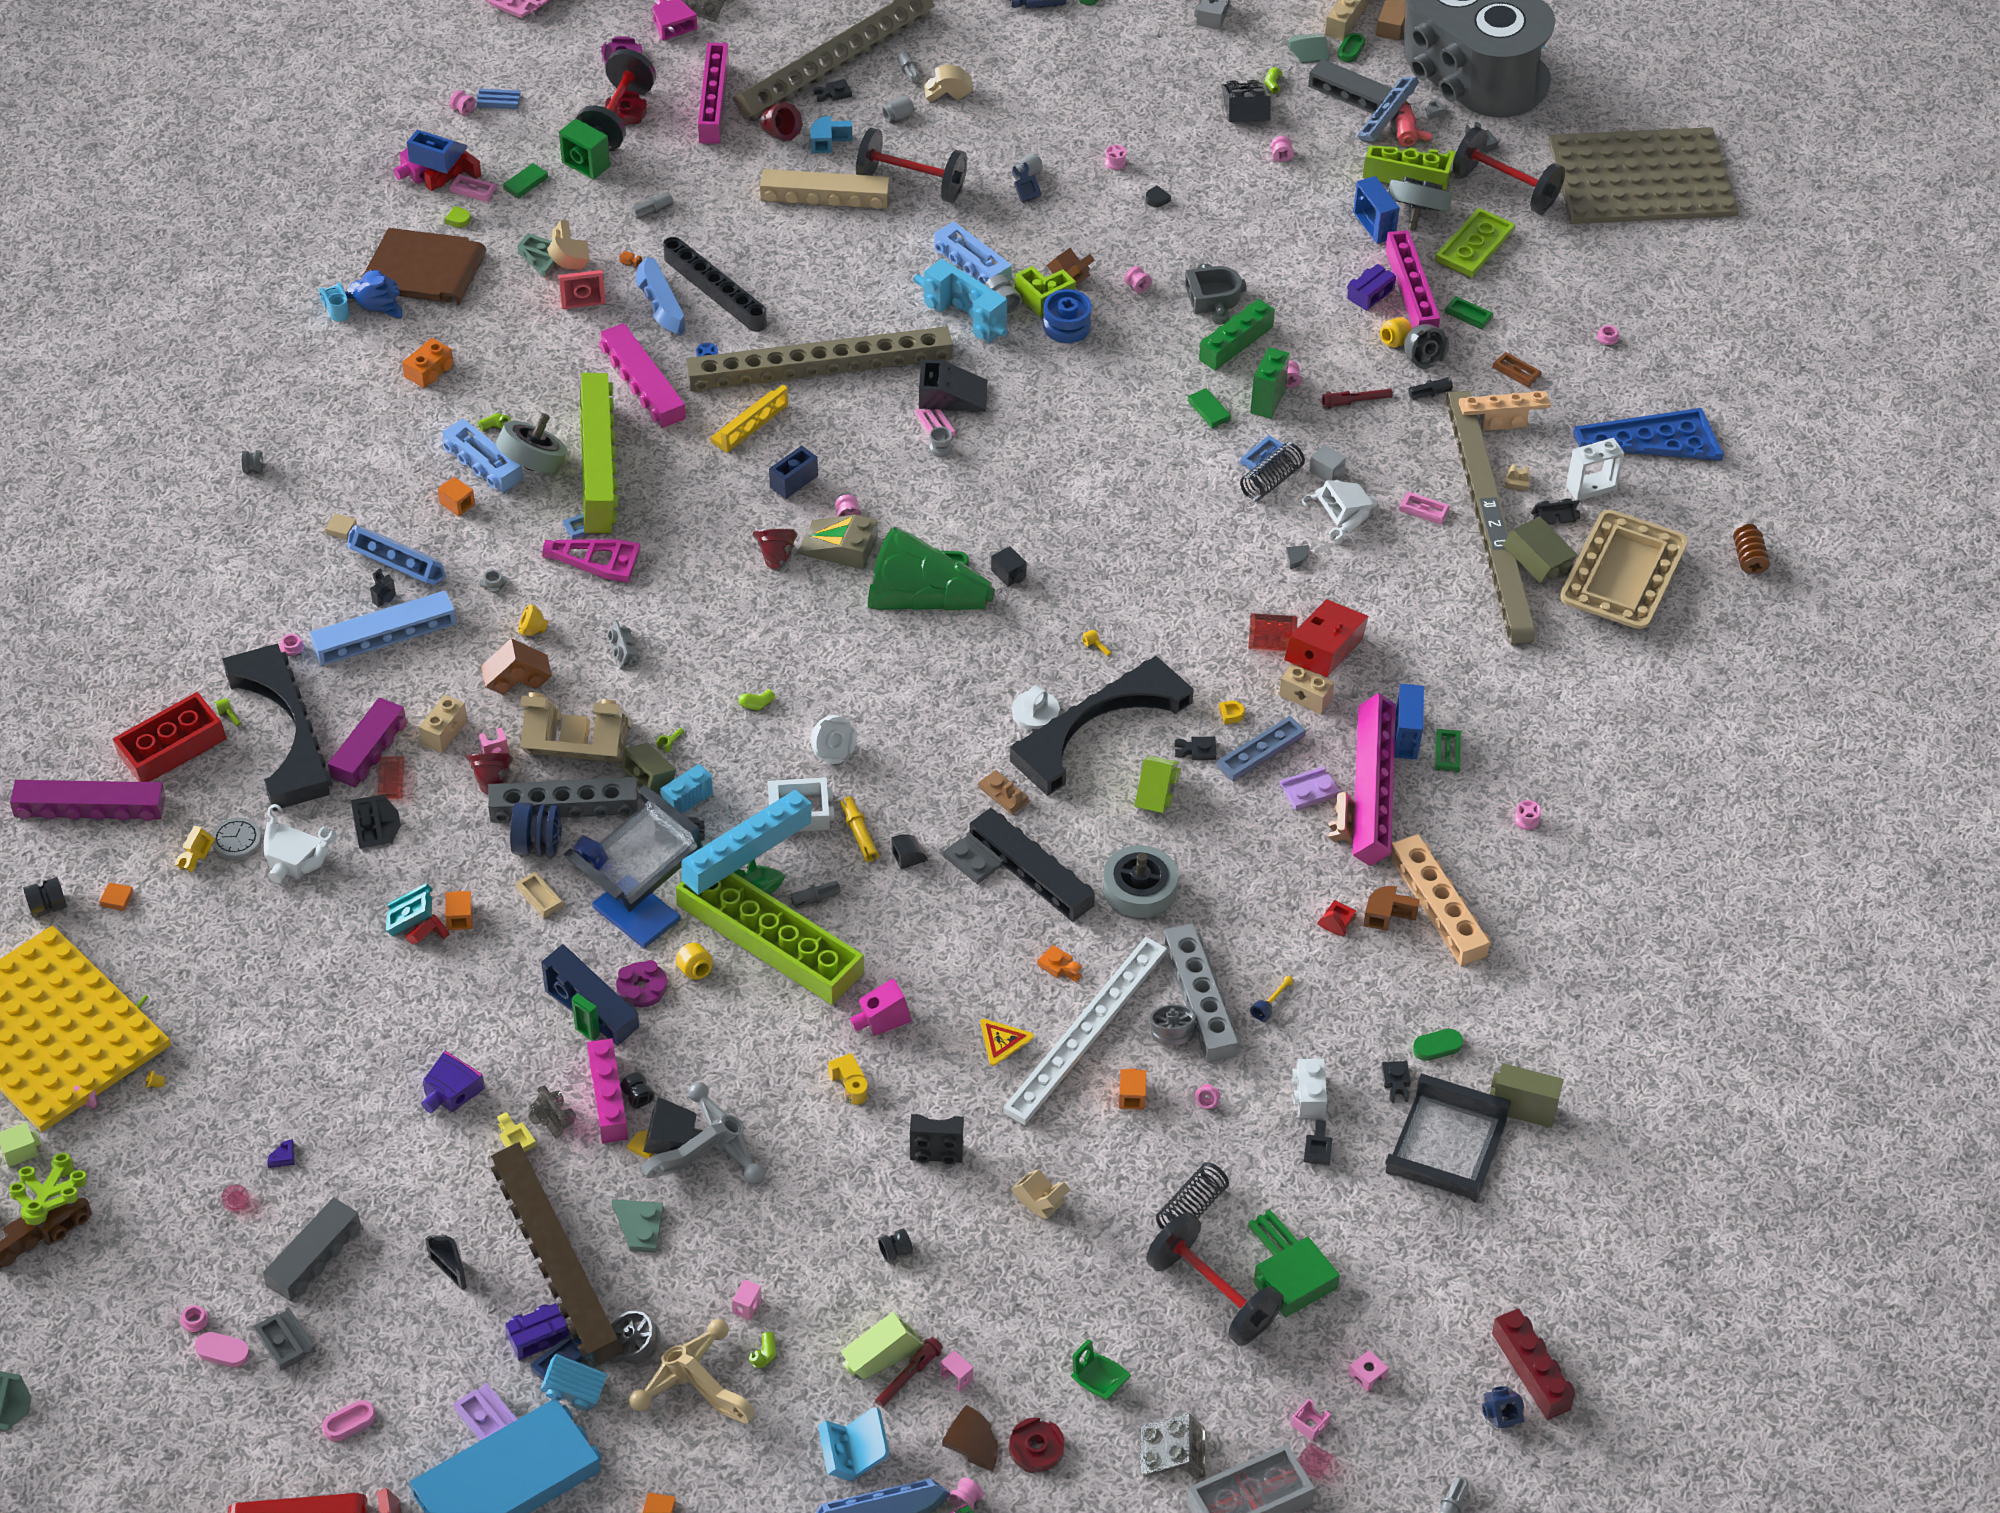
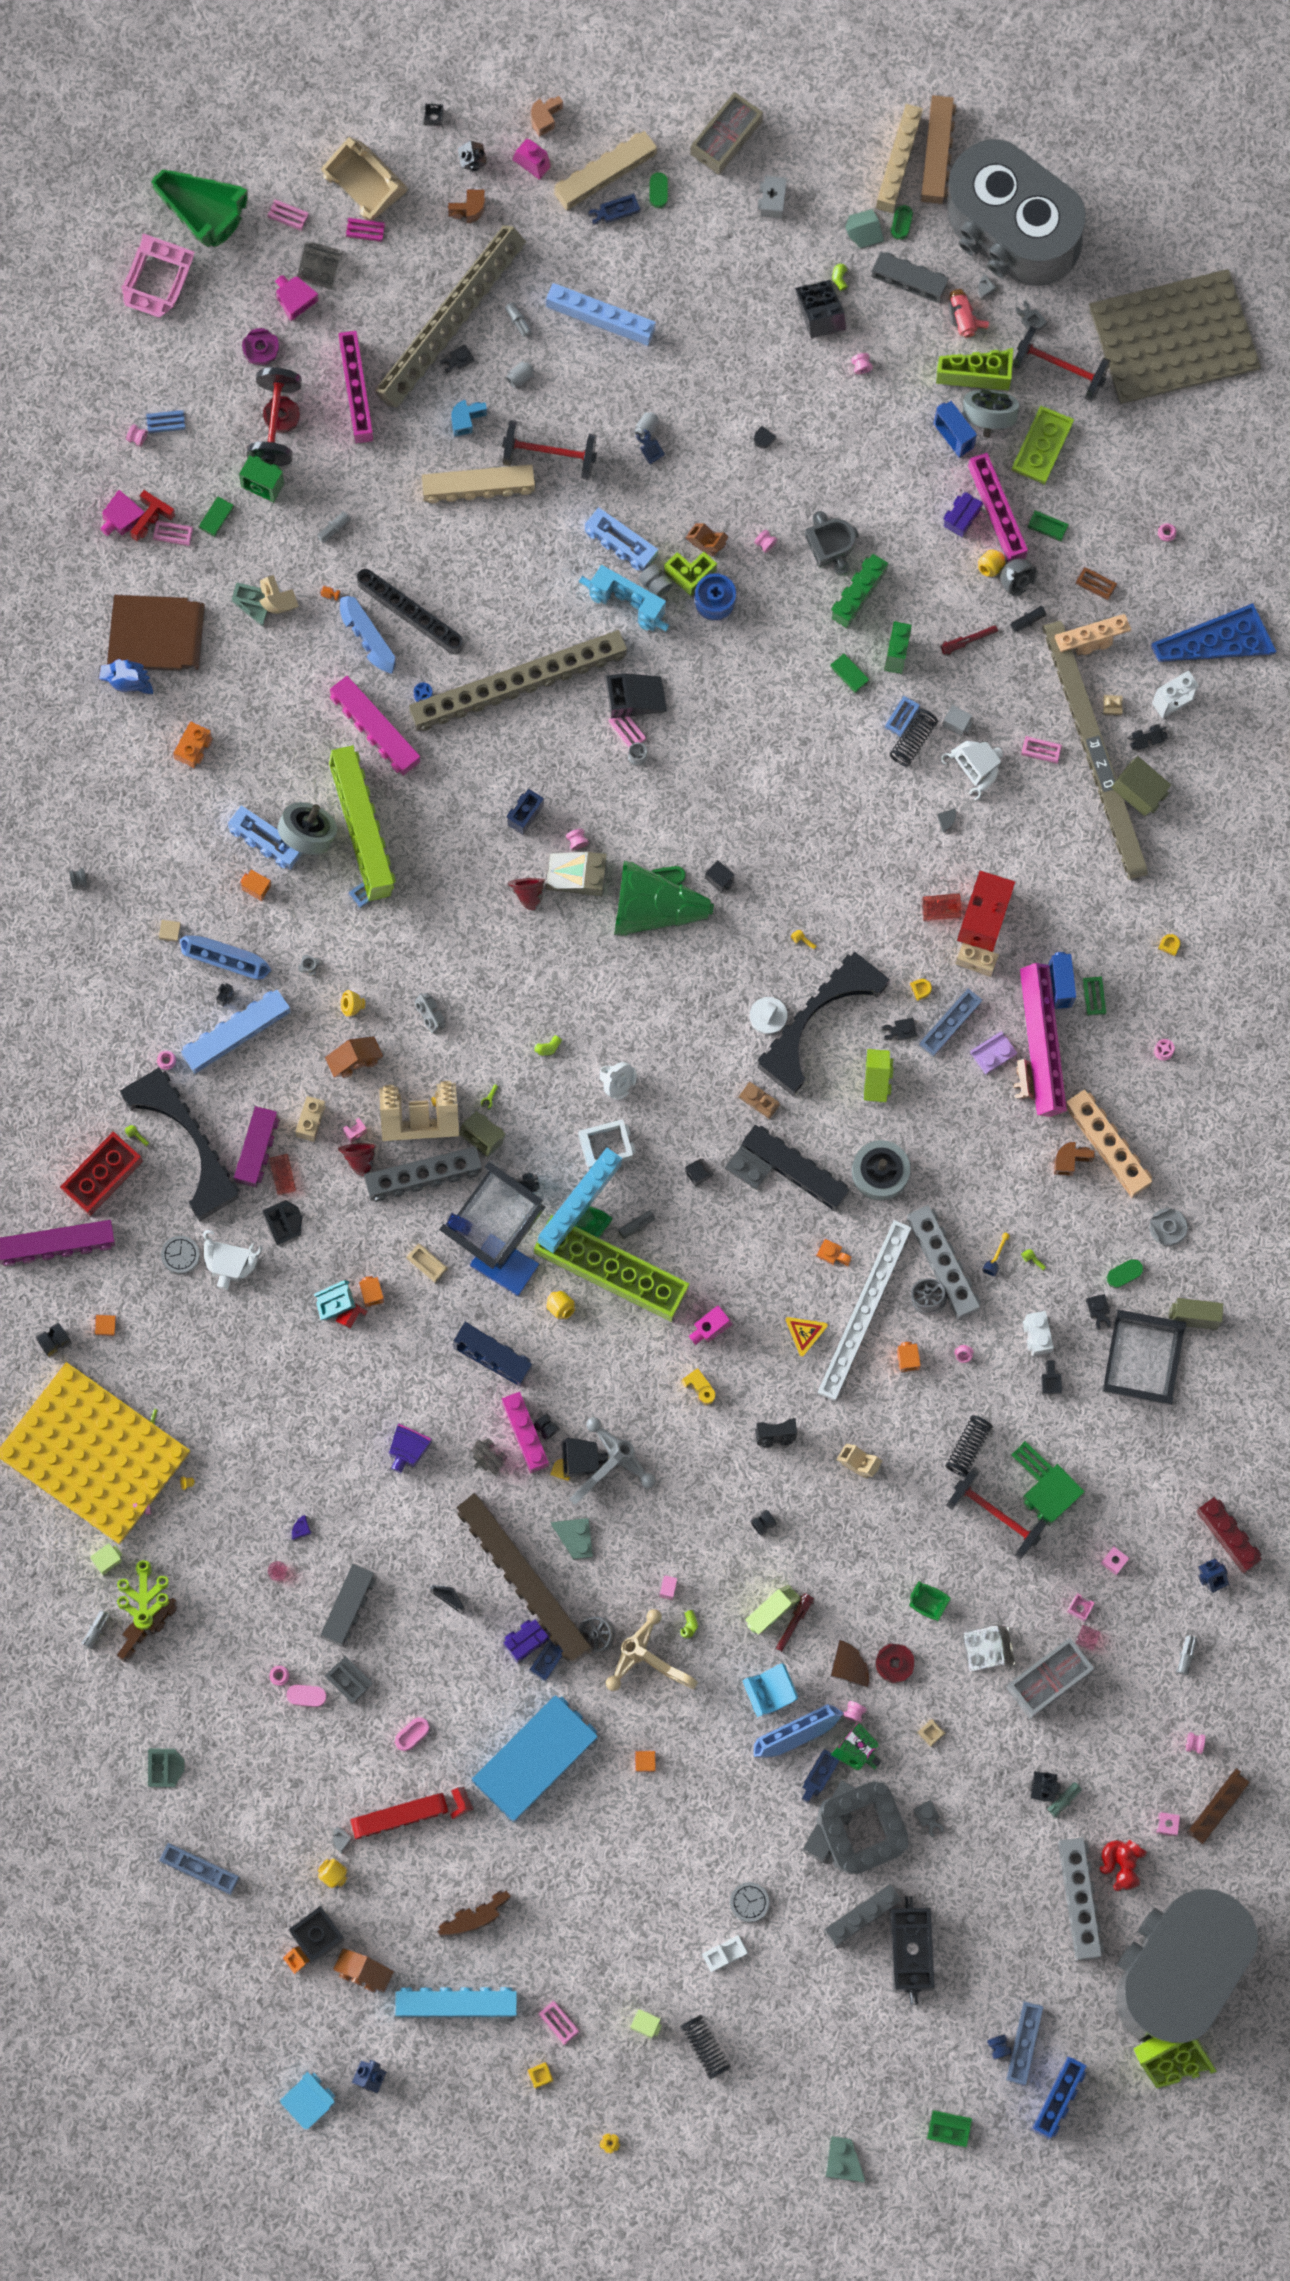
camera: 15 degrees left, 25 degrees up
(197, 848) = (154, 1272): yellow plate -> none
(335, 302) = (92, 686): medium azure piece -> none
(434, 151) = (136, 509): blue slope -> none
(458, 217) = (170, 570): lime tile -> none
(483, 1412) = (507, 1712): lavender plate -> none
(496, 420) = (265, 795): lime arm -> none
(515, 1133) = (468, 1483): light yellow plate -> none
(531, 829) = (412, 1210): dark blue wheel -> none
(573, 1382) = (564, 1679): medium azure brick -> none
(582, 289) = (302, 638): coral slope -> none
(585, 1017) = (494, 1375): green tile -> none
(621, 563) = (407, 926): dark pink plate -> none
(641, 971) = (515, 1325): magenta plate -> none
(688, 789) = (516, 1148): medium azure brick -> none
(751, 419) = (474, 756): yellow fence -> none
(782, 121) = (422, 411): dark red piece -> none
(855, 821) = (652, 1151): yellow pin -> none
(951, 80) = (558, 335): tan brick -> none
(959, 1367) = (829, 1616): bright pink piece -> none
(1001, 72) = (600, 314): none -> light blue brick
(1115, 157) = (722, 395): bright pink wheel -> none
(1293, 375) = (912, 620): bright pink wheel -> none
(1315, 1003) = (1028, 1255): none -> lime hand
(1337, 918) = (1033, 1172): red tile -> none
(1388, 108) = (947, 303): sand blue plate -> none
(1500, 1009) = (1169, 1232): none -> light grey tile
(1551, 713) = (1170, 944): none -> yellow tile
(1624, 569) = (1210, 792): tan wedge -> none

